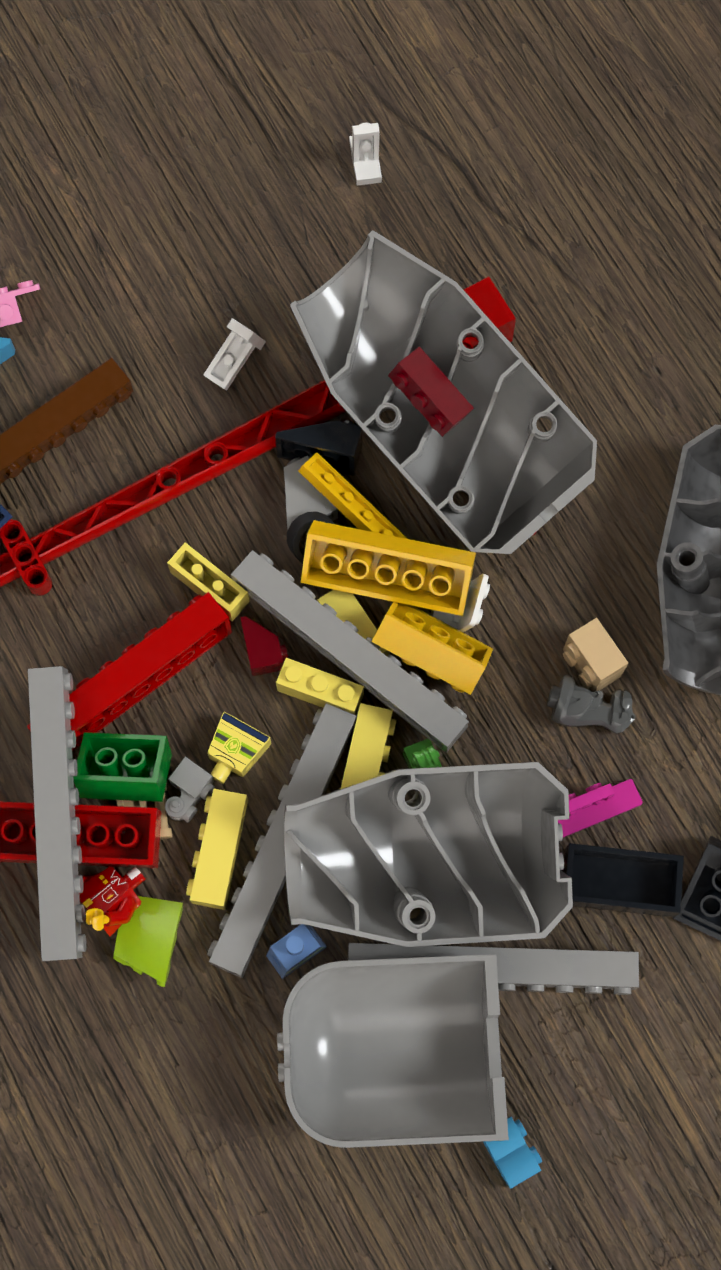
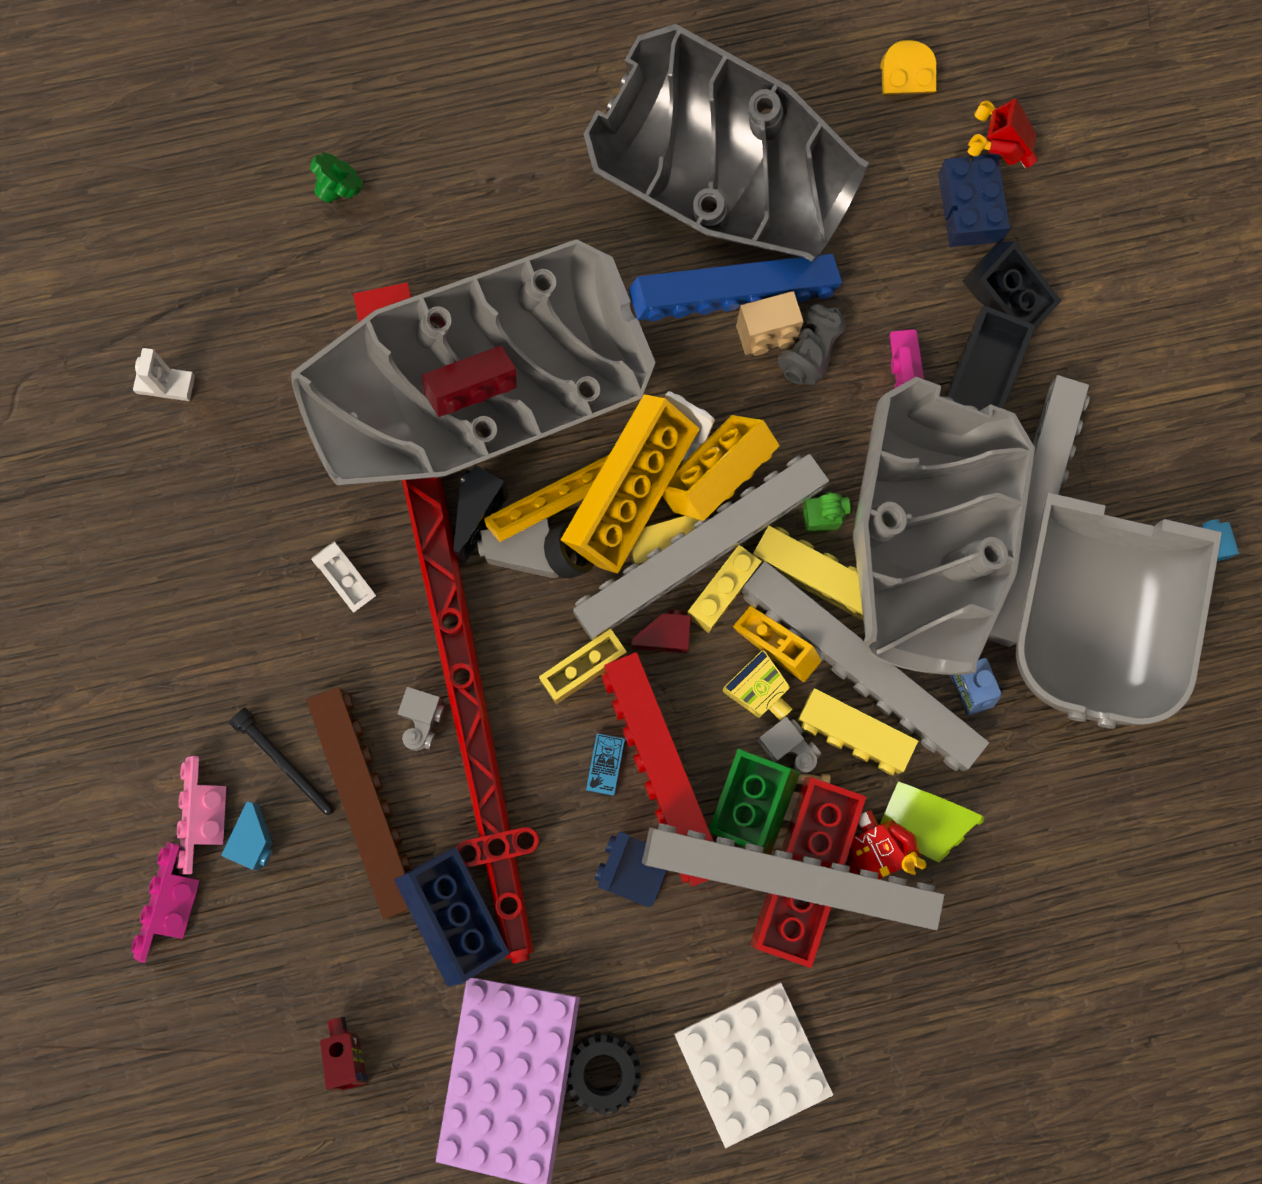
camera: 75 degrees left, 5 degrees up
(25, 658) = (625, 872): none -> dark blue bracket
(80, 318) = (244, 722): none -> black piece
(124, 630) = (605, 764): none -> dark azure tile
(129, 462) = (424, 712): none -> light grey brick
(283, 750) = (779, 643): none -> yellow slope
(604, 233) = (334, 178): none -> green plant
(615, 608) = (732, 286): none -> blue brick

